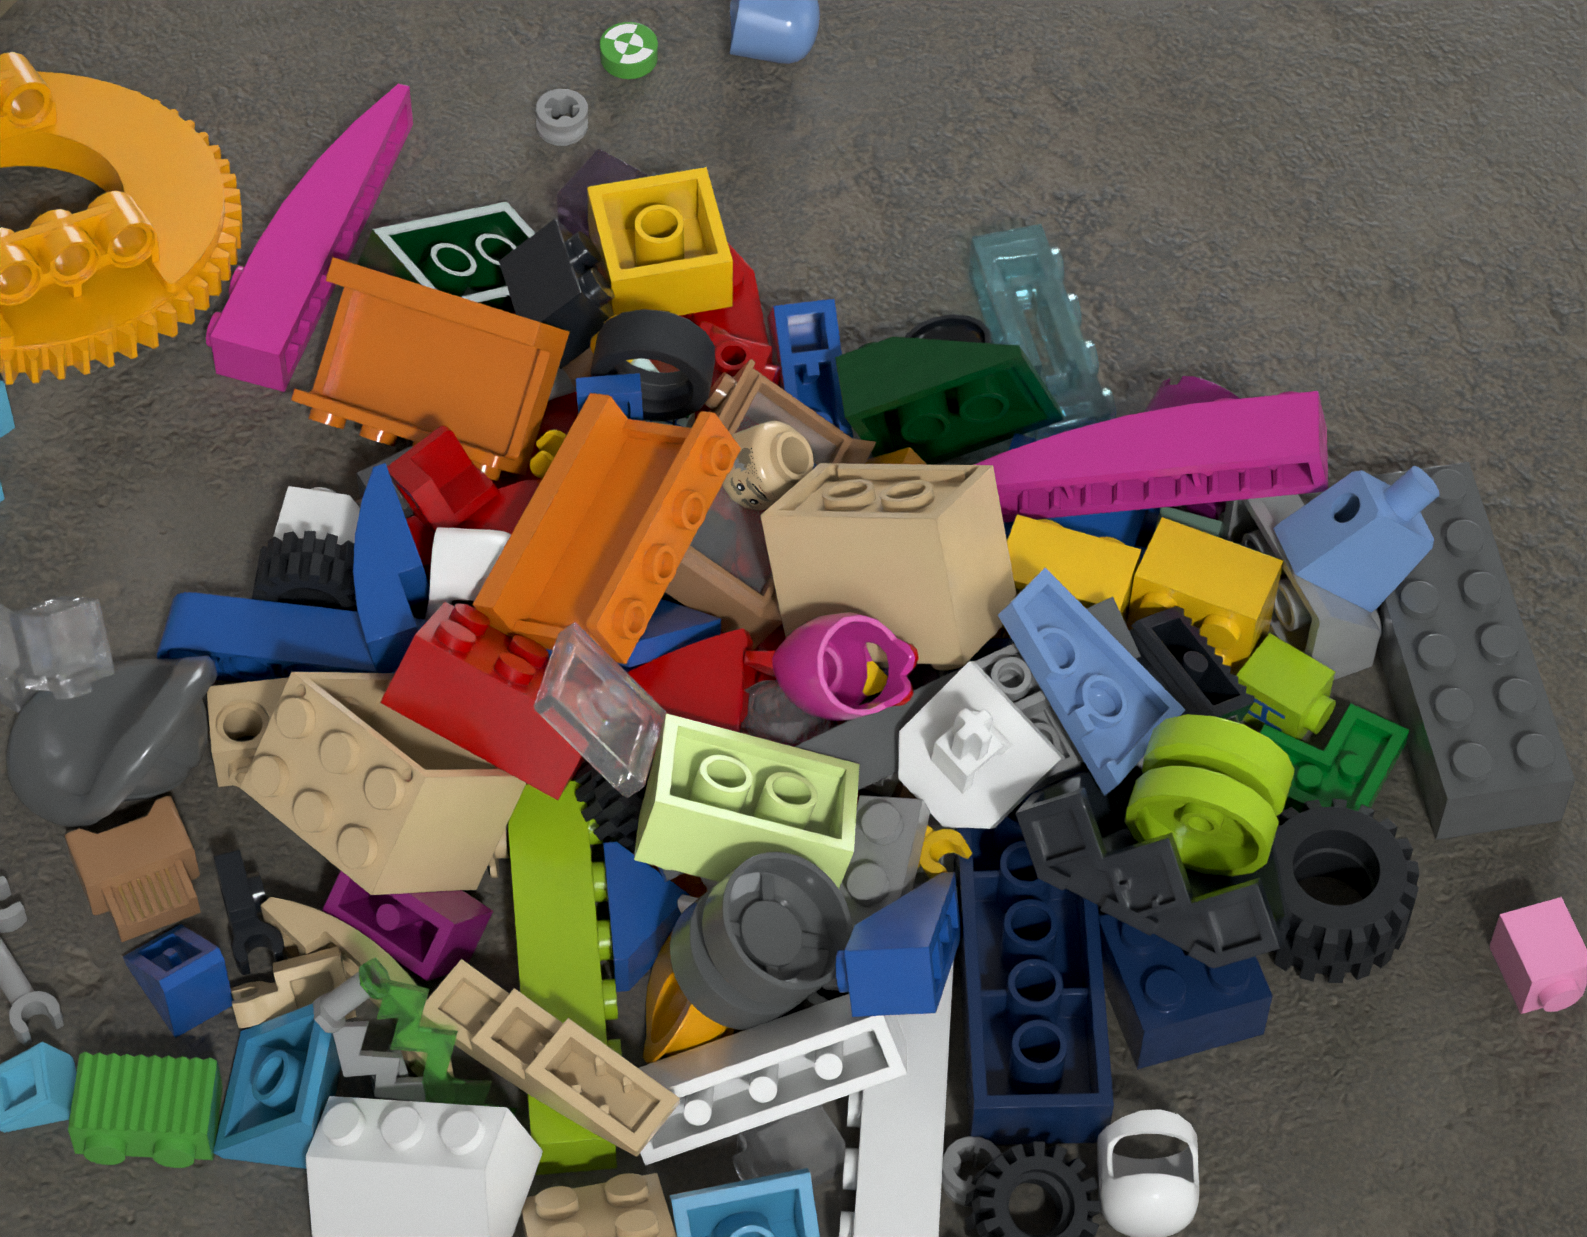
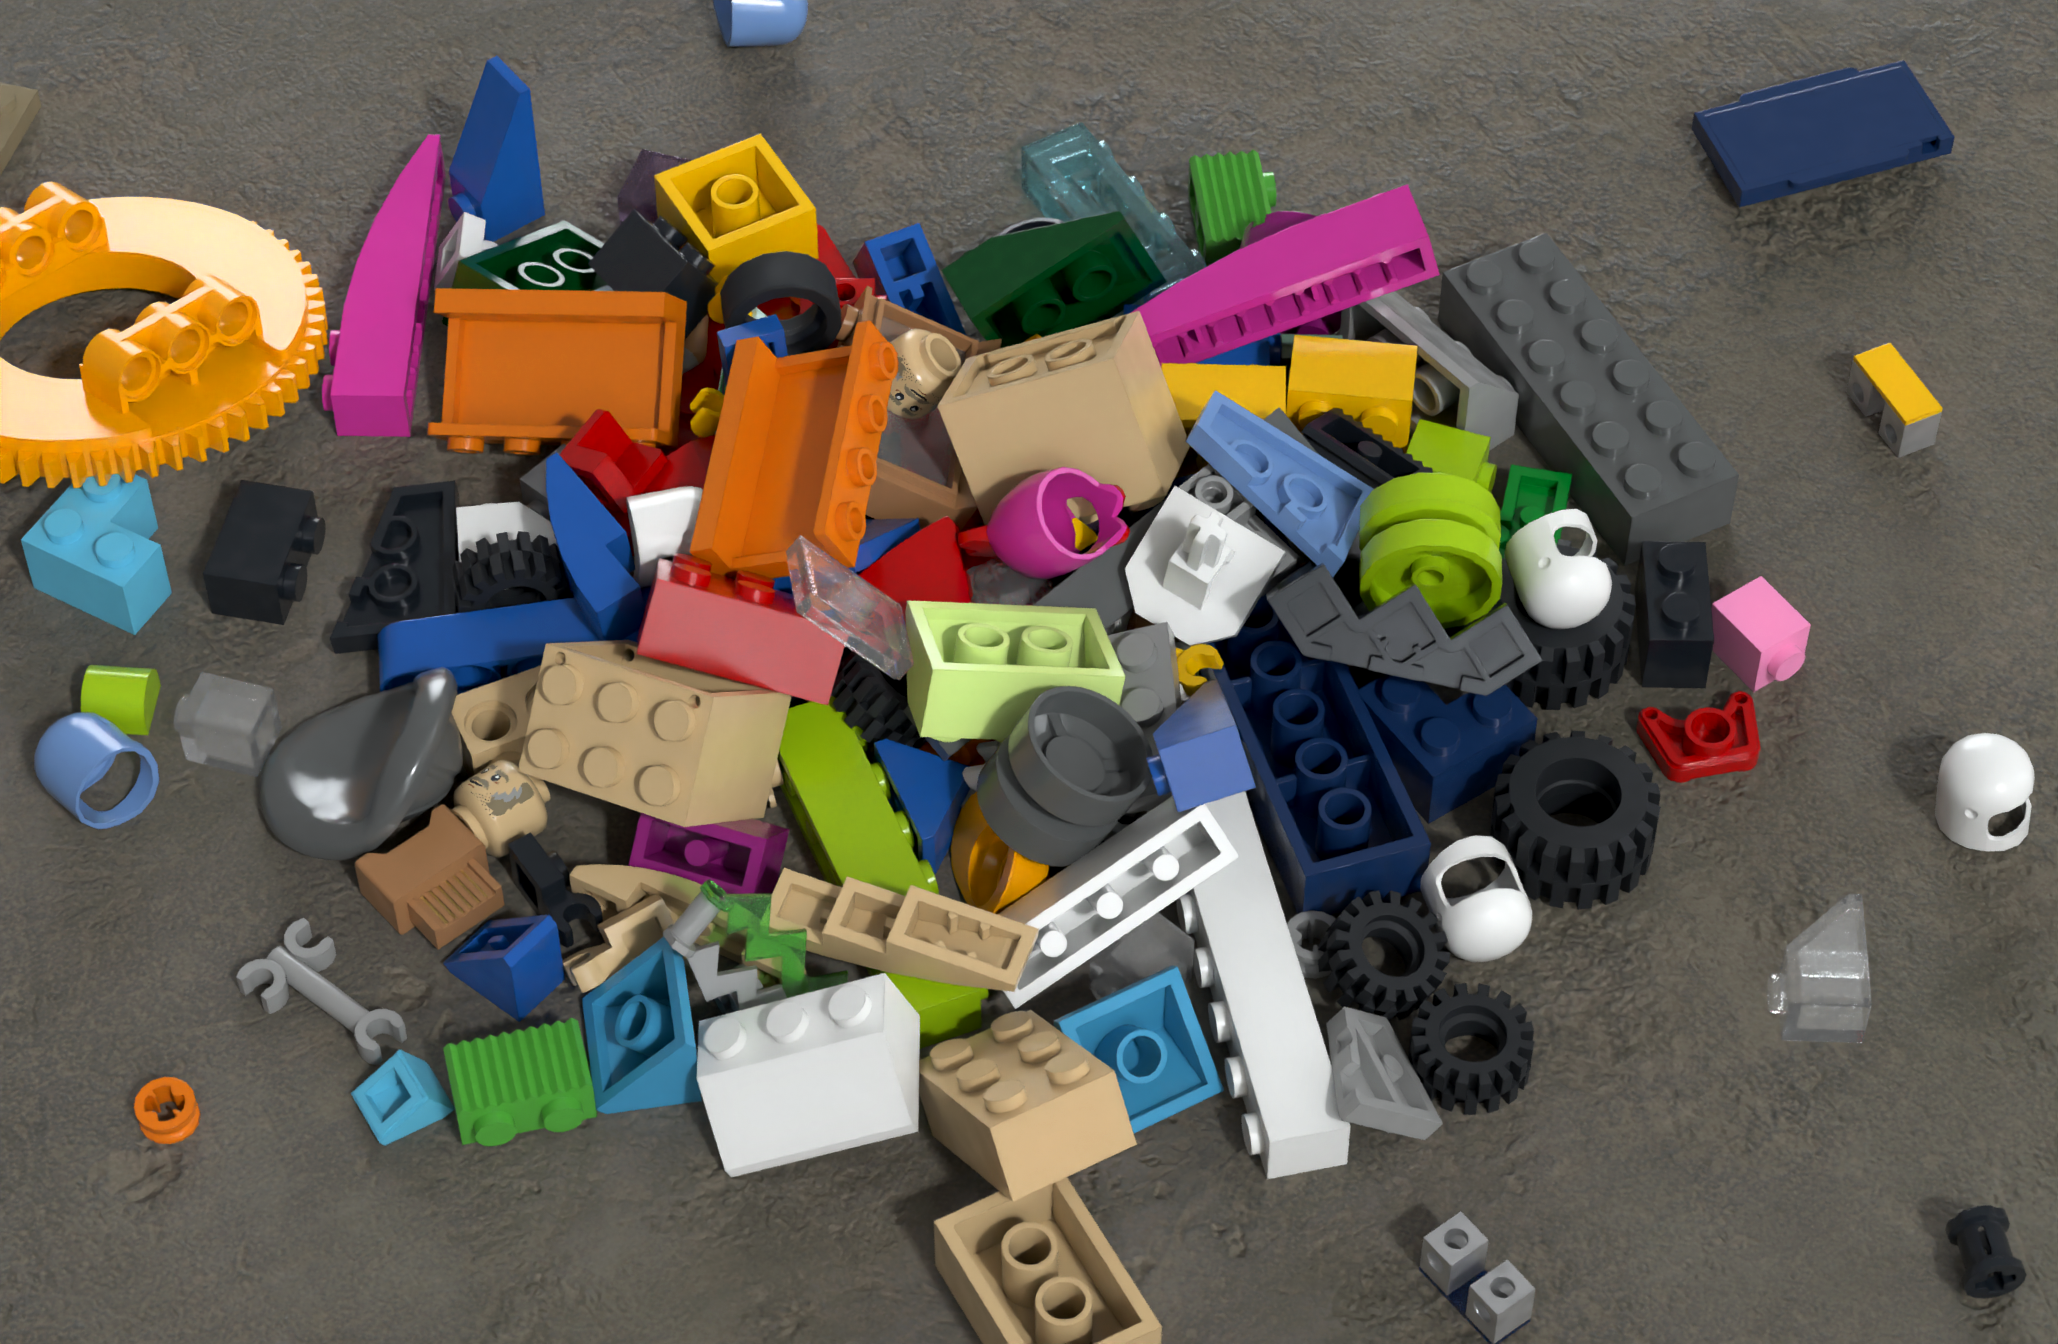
camera: 15 degrees left, 5 degrees down
(62, 645) = (293, 694): clear brick -> none
(97, 482) = (263, 552): none -> black brick
(221, 814) = (502, 806): none -> tan head
(225, 537) = (407, 567): none -> black wing
(396, 207) = (461, 242): none -> white tile
(450, 129) = (497, 156): none -> blue slope
(565, 129) = (599, 143): light grey bush -> none
(628, 50) = (630, 64): bright green tile -> none
(1164, 343) = (1226, 198): none -> bright green brick
(1288, 1064) = (1586, 780): none -> black tyre
(1334, 866) = (1557, 587): none -> white helmet
(1361, 535) = (1482, 306): medium blue torso -> none
(1450, 1057) = (1704, 743): none -> red piece
(1460, 912) = (1674, 614): none -> black brick

